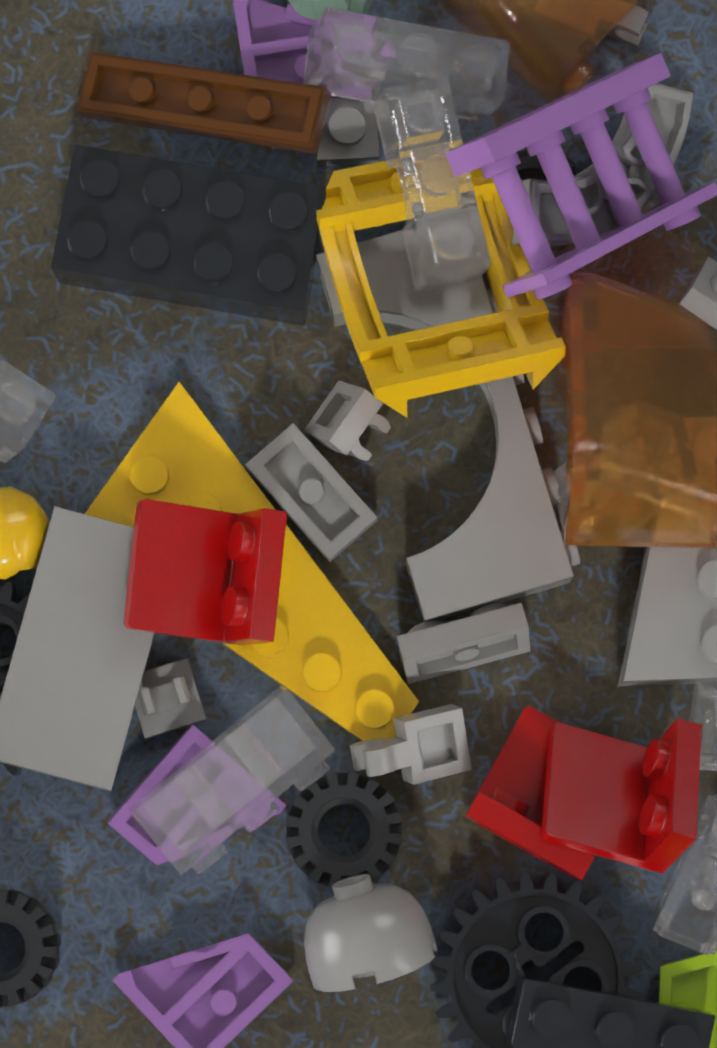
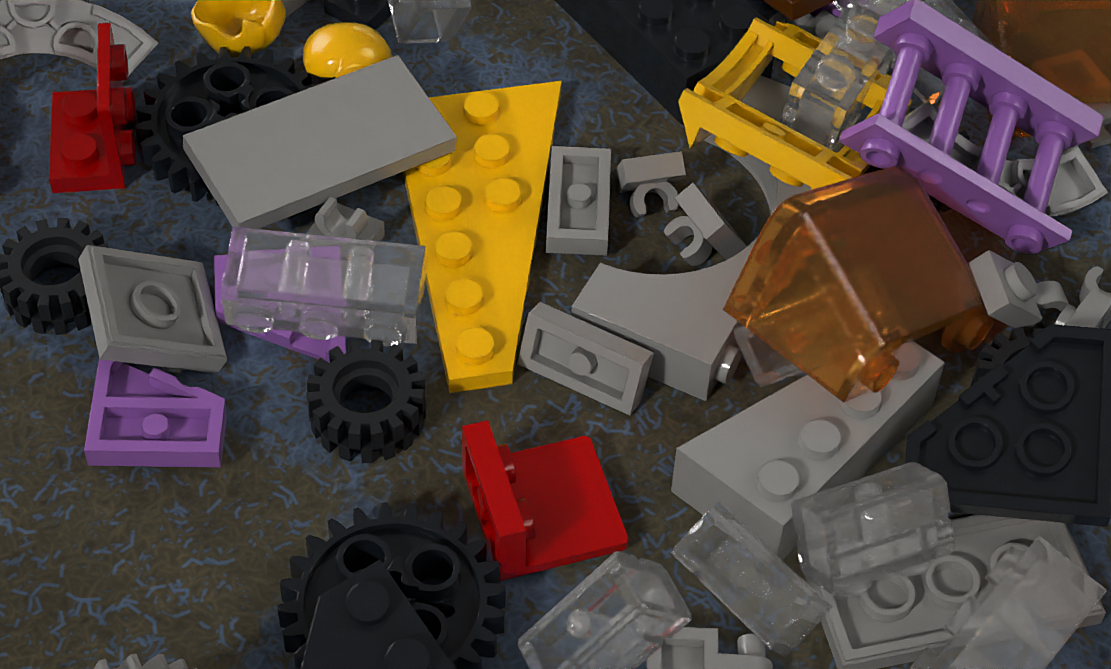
camera: 40 degrees right, 30 degrees down
(114, 914) = (151, 310): none -> light grey plate
(205, 572) = (447, 152): red bracket -> none
(366, 934) = (301, 449): light grey cylinder -> none
(425, 747) = (481, 391): light grey plate -> none
(435, 425) = (706, 225): none -> light grey tile
(623, 796) = (587, 513): red bracket -> none

